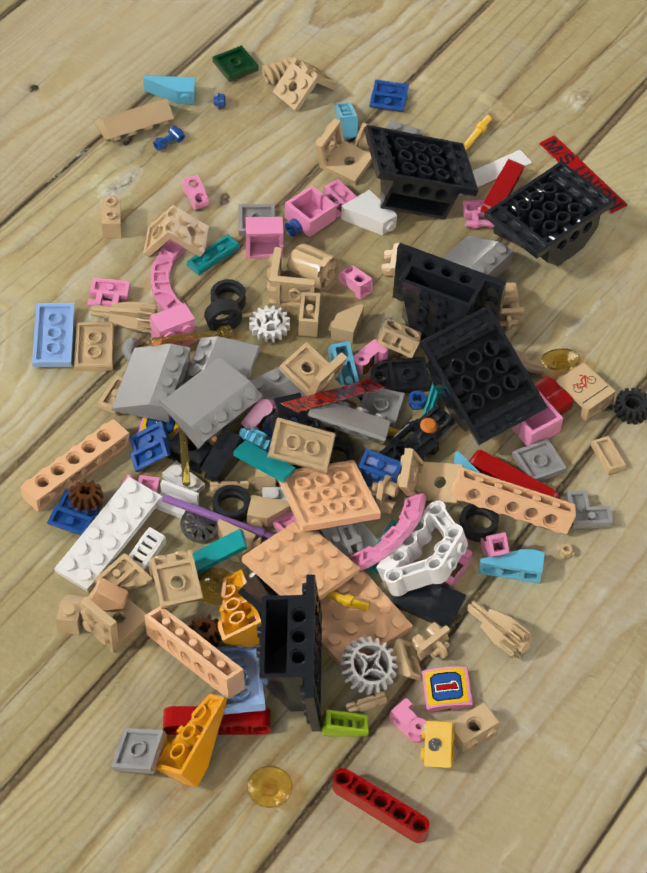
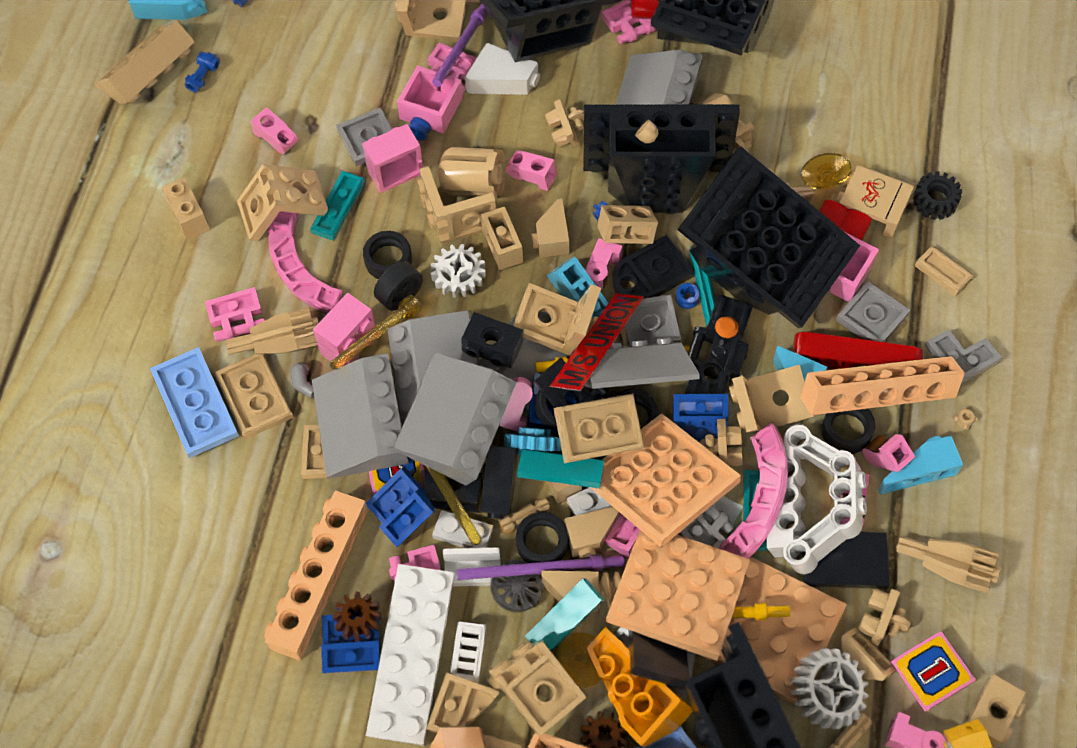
camera: 20 degrees left, 10 degrees up
(262, 367) = (484, 329): none -> black brick
(343, 187) = (477, 19): none -> medium lavender bar
(431, 274) = (647, 132): none -> tan hinge

